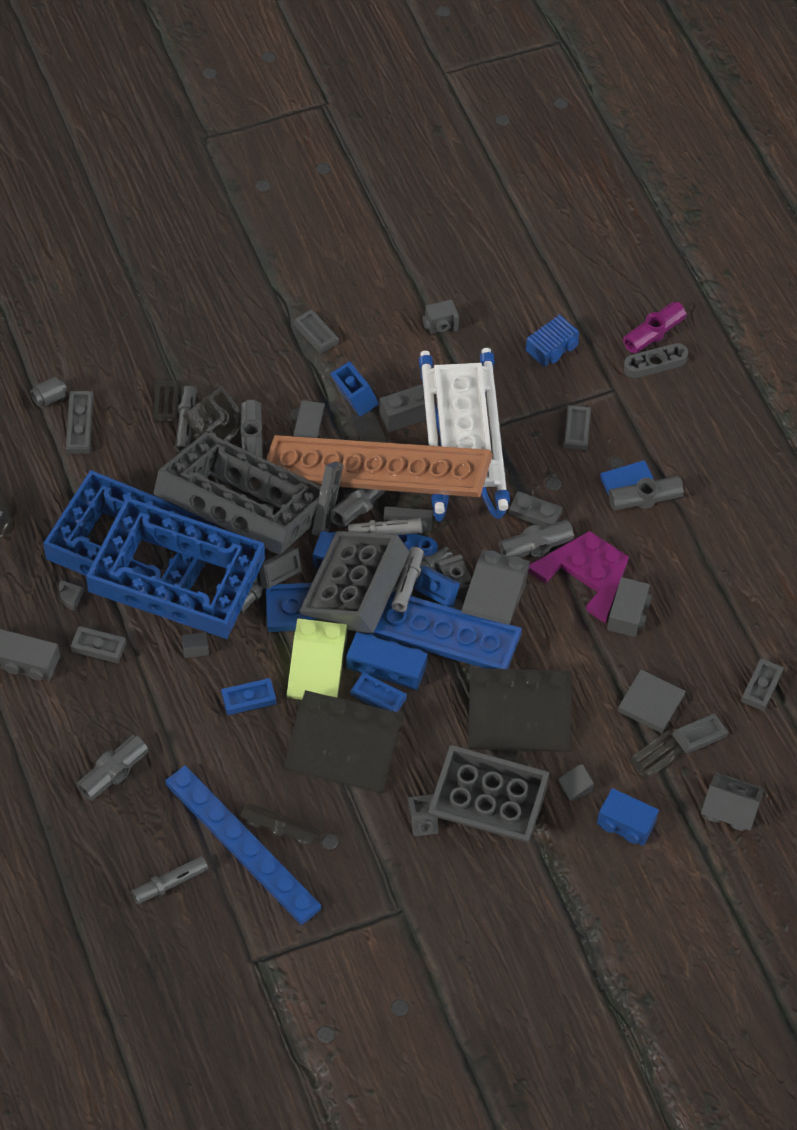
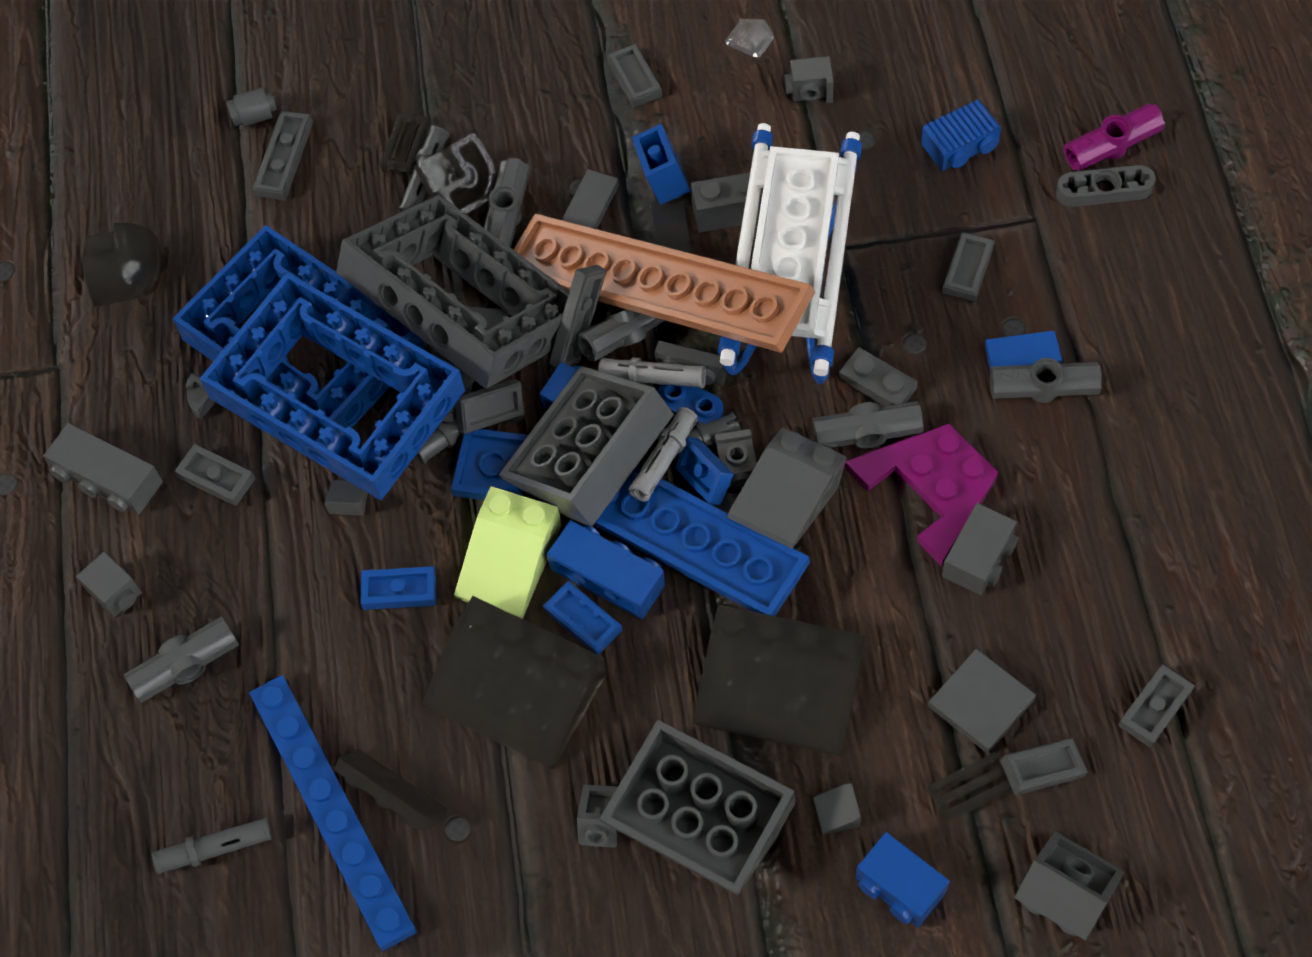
camera: 20 degrees right, 5 degrees up
(47, 728) = (109, 584): none -> dark grey brick
(390, 293) = (750, 37): none -> clear slope

